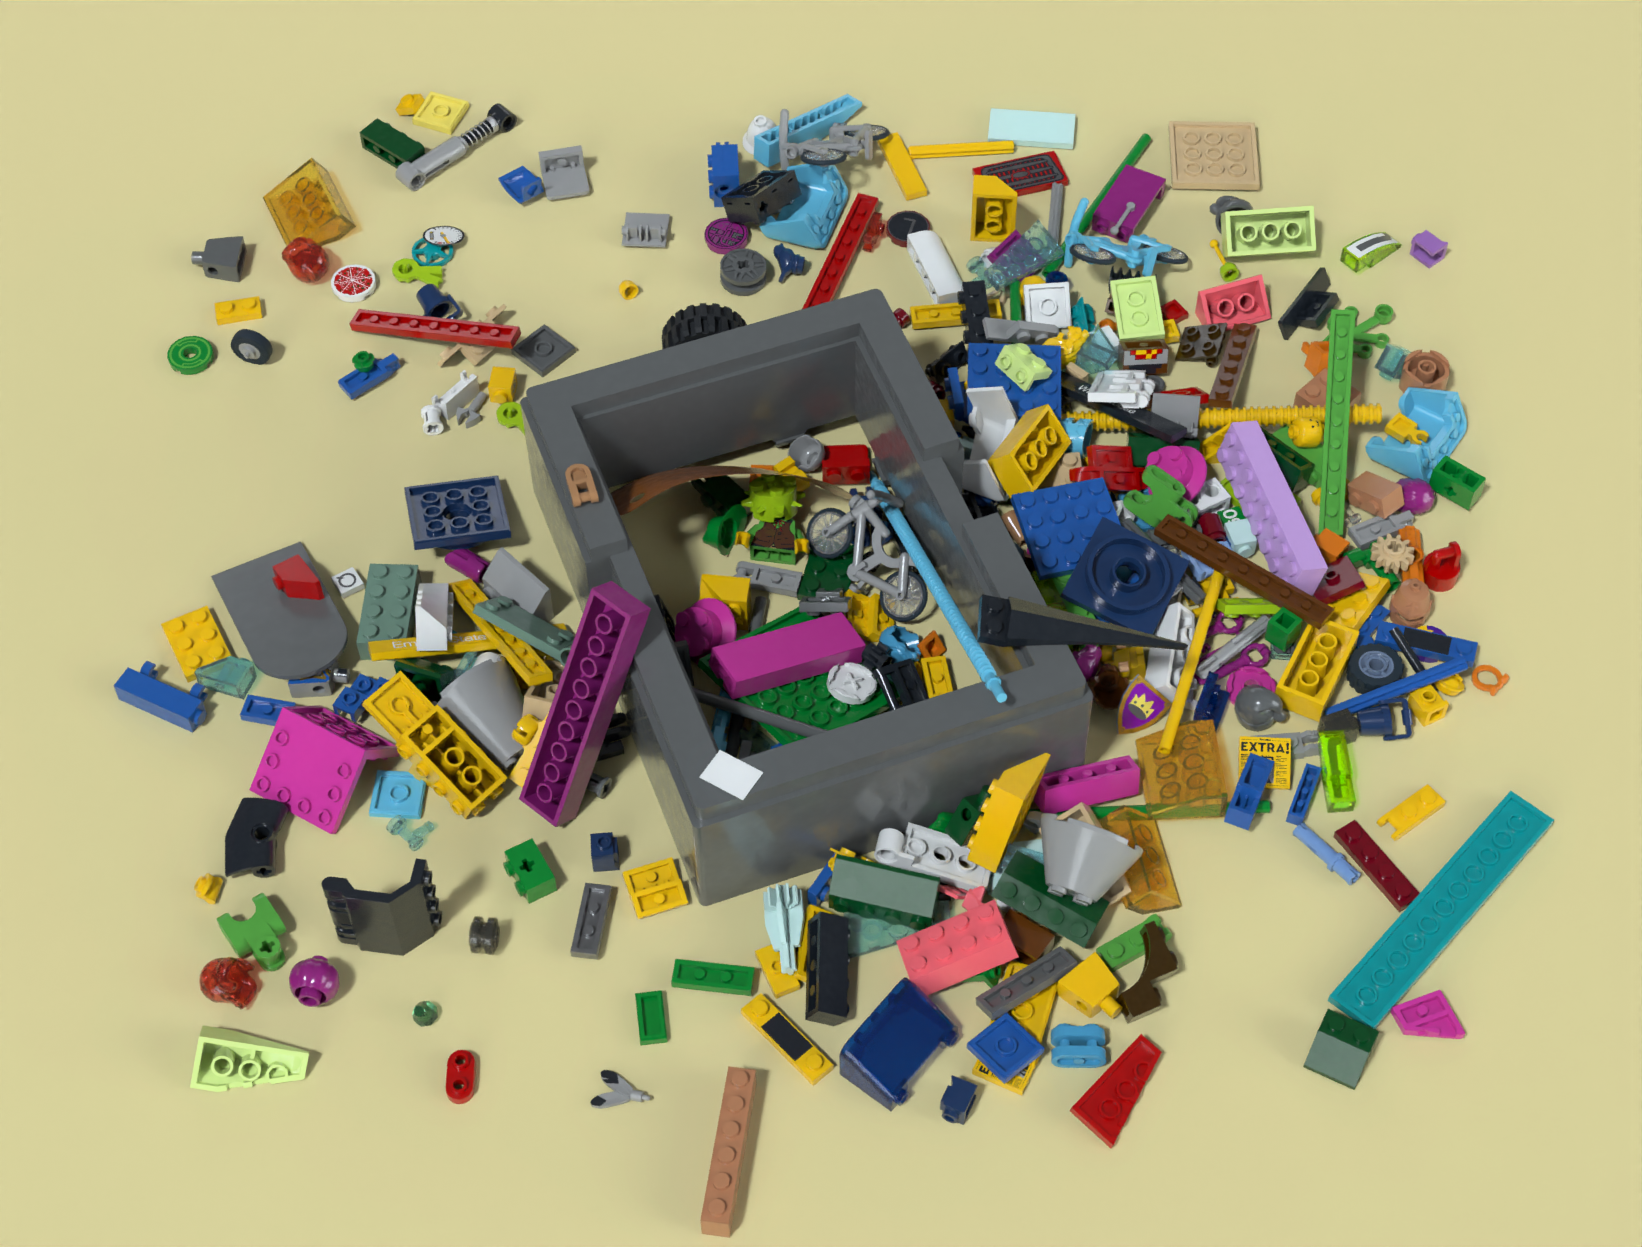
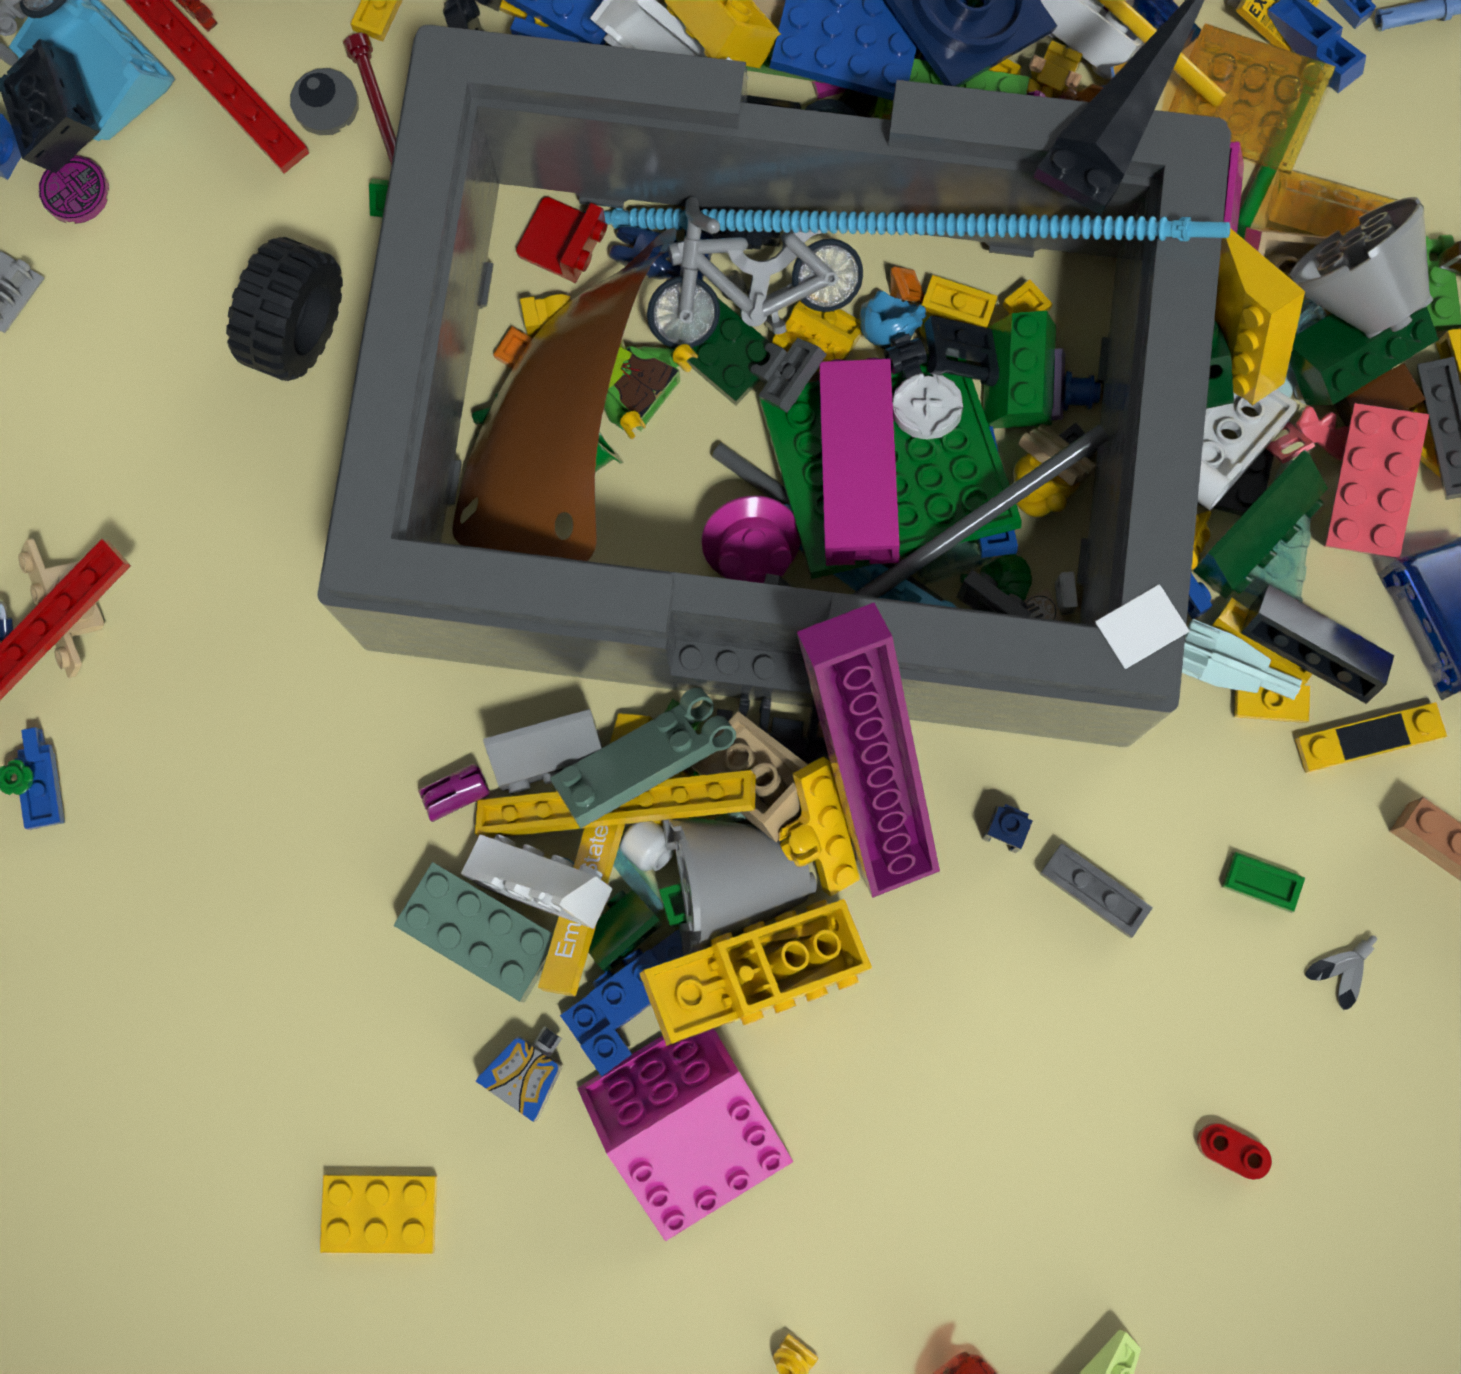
camera: 60 degrees left, 25 degrees up
(160, 699) = (453, 1304): blue brick -> none
(228, 676) = (465, 1193): clear light blue slope -> none
(243, 848) = (764, 1290): black panel -> none
(257, 934) = (906, 1324): bright green piece -> none
(263, 709) = (551, 1163): blue plate -> none
(281, 633) = (403, 1077): dark grey piece -> none
(297, 579) = (363, 1036): red slope -> none
(314, 981) = (1021, 1280): magenta plant -> none
(347, 582) = (389, 965): white tile -> none
(384, 920) = (973, 1199): black hinge -> none
(396, 795) = (774, 1049): medium azure tile -> none
(398, 825) = (854, 1059): clear light blue piece -> none
(425, 1013) = (1124, 1157): clear green rock -> none
(432, 423) = (172, 730): white bush -> none
(457, 513) = (343, 739): dark blue piece -> none
(458, 395) = (146, 678): white hinge -> none
(474, 418) = (182, 668): light grey bar -> none
(484, 935) = (1057, 1033): clear smoke wheel -> none
(502, 385) = (168, 608): yellow brick -> none
(510, 415) = (225, 619): lime piece -> none
(530, 871) = (1006, 924): green brick -> none
(543, 350) = (134, 522): dark grey tile -> none
(579, 477) = (539, 590): medium nougat plate -> none
(628, 289) = (92, 363): yellow hinge -> none
(654, 888) = (1084, 790): yellow slope -> none
(713, 977) = (1249, 782): green plate -> none
(733, 592) = (714, 484): yellow slope -> none
(743, 272) = (175, 202): dark grey wheel -> none
(770, 578) = (691, 425): light grey plate -> none
(788, 261) = (175, 133): dark blue animal -> none
(807, 453) = (522, 275): light grey hair -> none
(1013, 527) = (782, 88): medium nougat cone -> none

